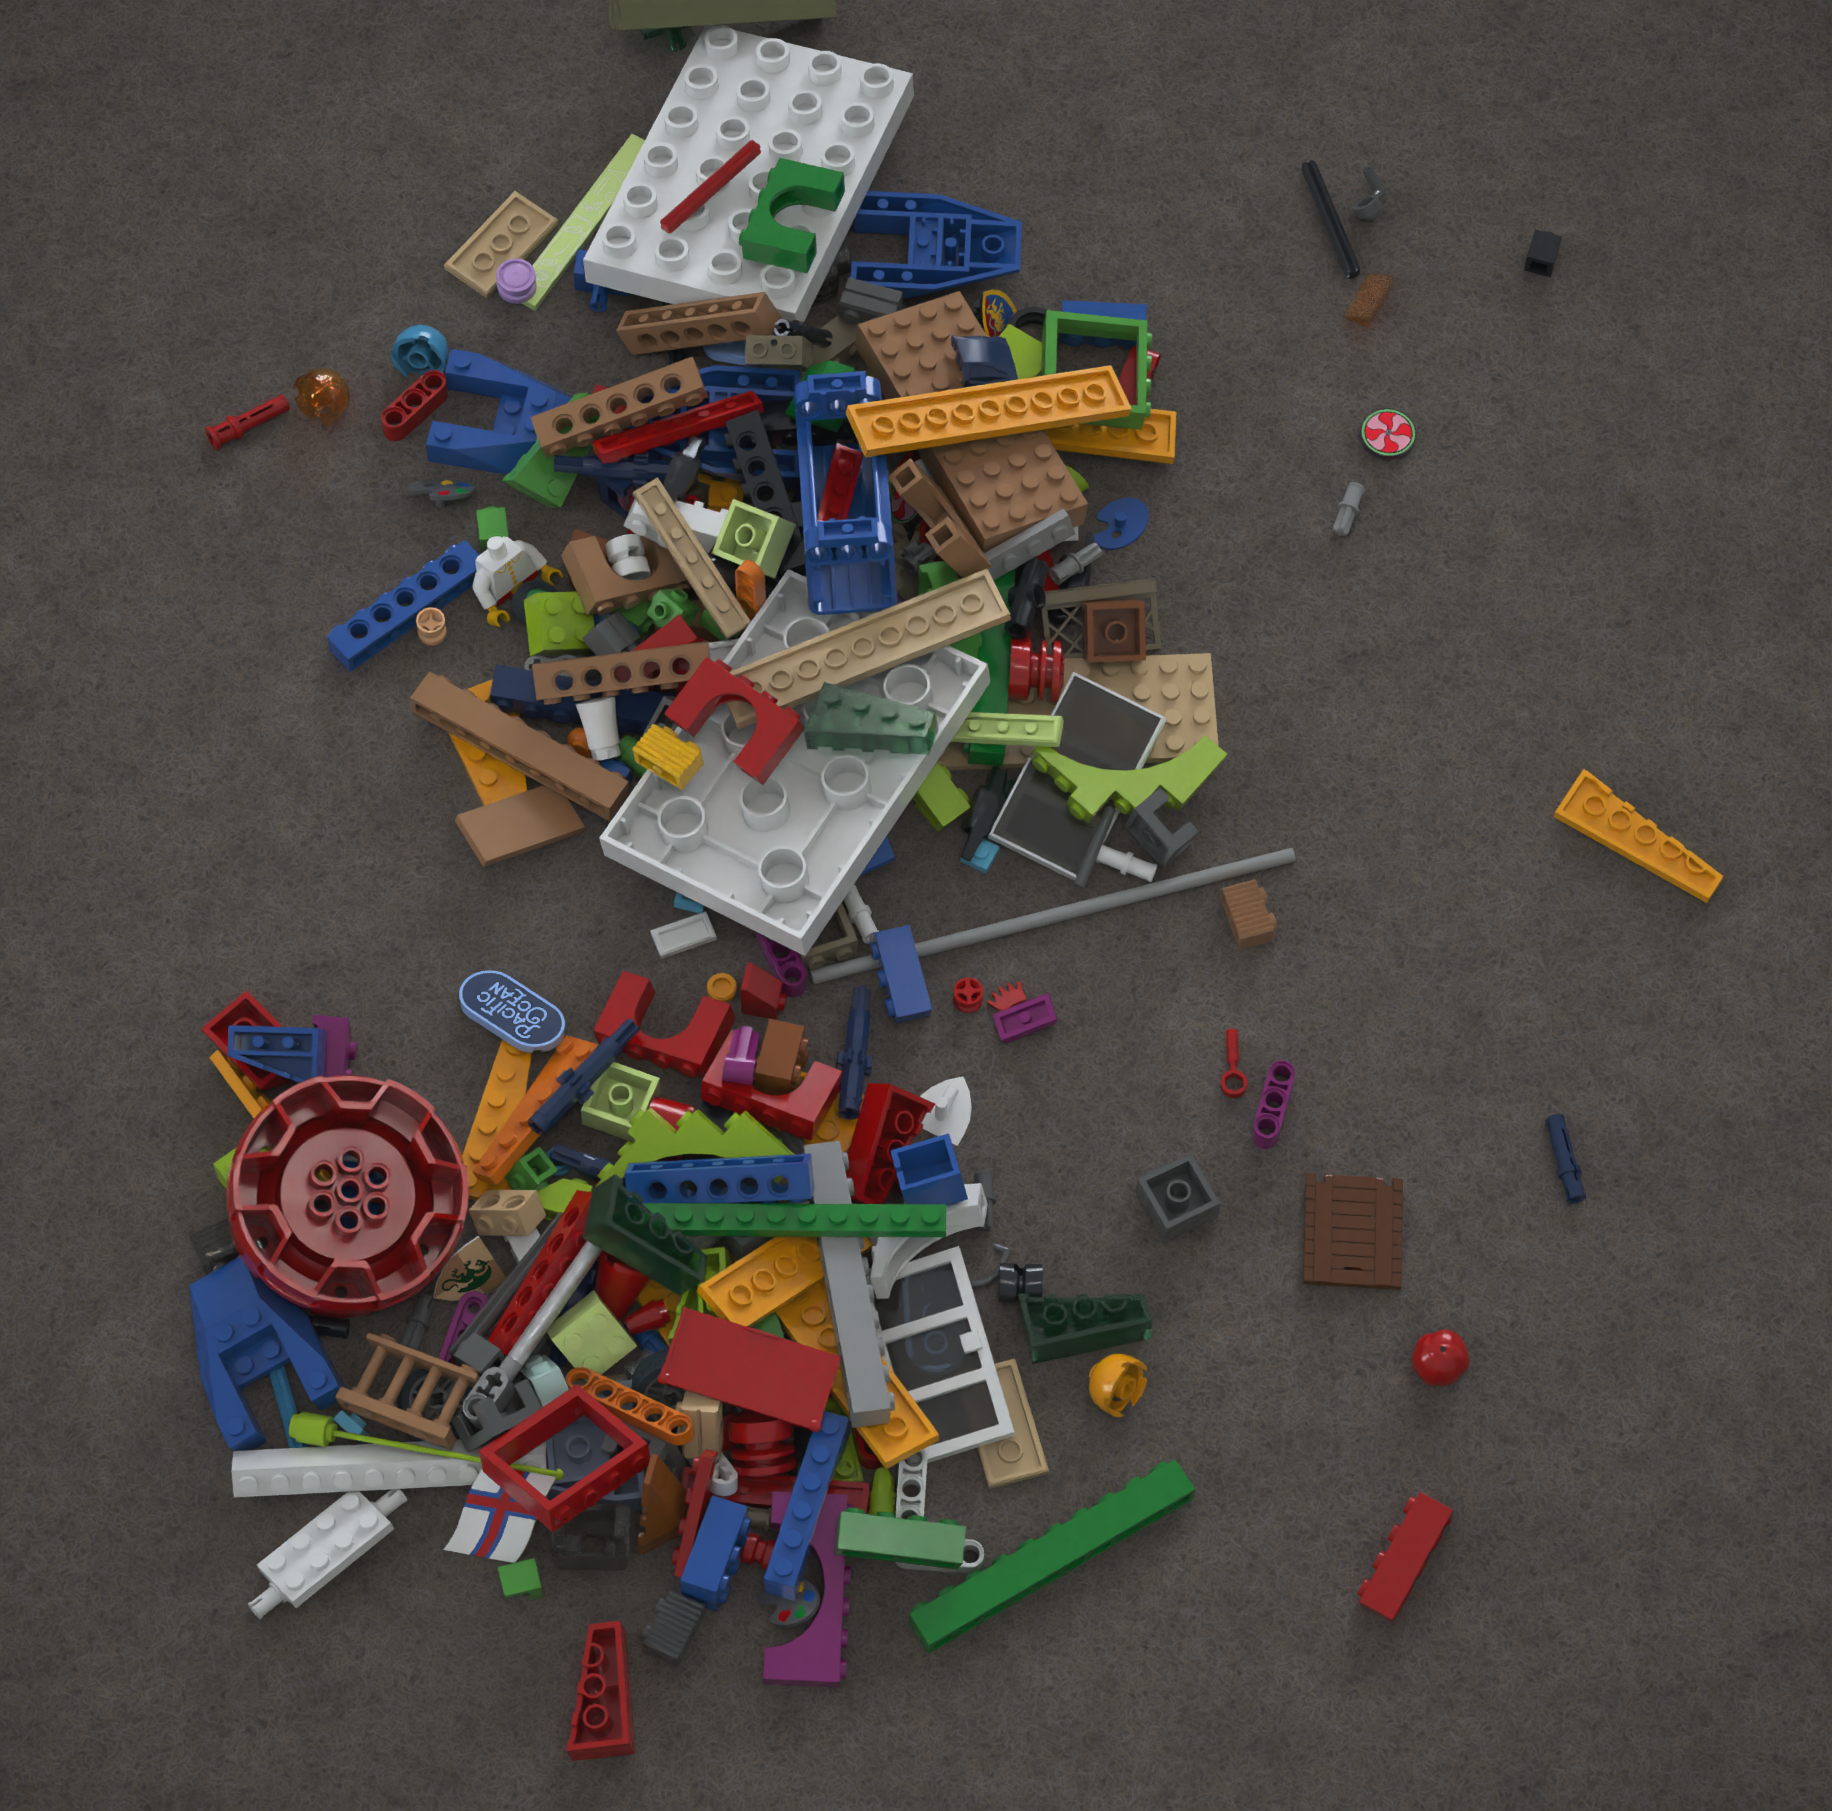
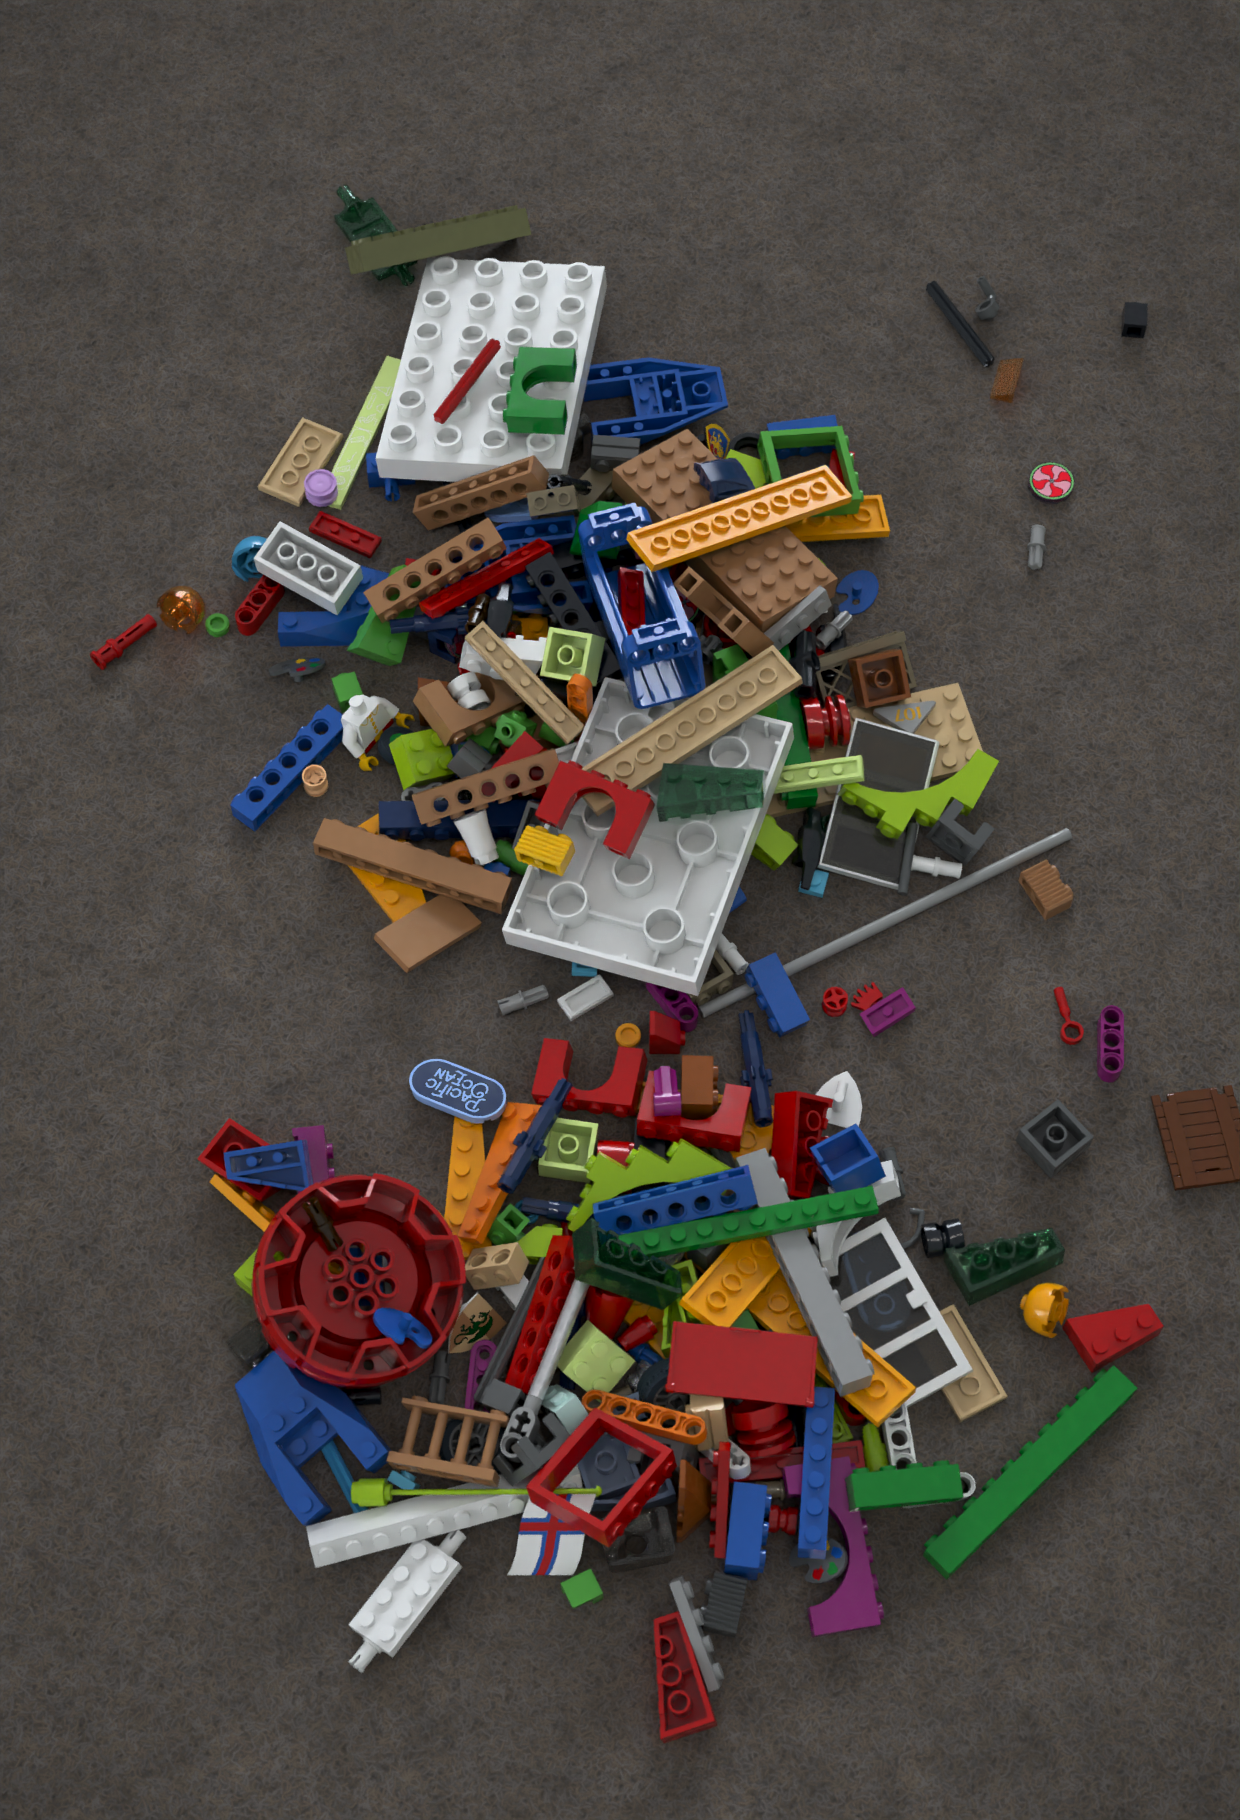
camera: 10 degrees left, 0 degrees up
(318, 1123) = (322, 1224): none -> dark brown pin
(360, 422) = (217, 625): none -> bright green tile
(380, 1251) = (399, 1325): none -> blue piece
(476, 376) = (308, 568): none -> white brick
(533, 341) = (345, 534): none -> red tile
(610, 923) = (522, 999): none -> light grey axle
(631, 1636) = (700, 1643): none -> light grey plate
(657, 465) = (478, 612): none -> dark brown pin
(1136, 682) = (906, 716): none -> light grey tile
(1185, 1426) = (1111, 1333): none -> red wedge

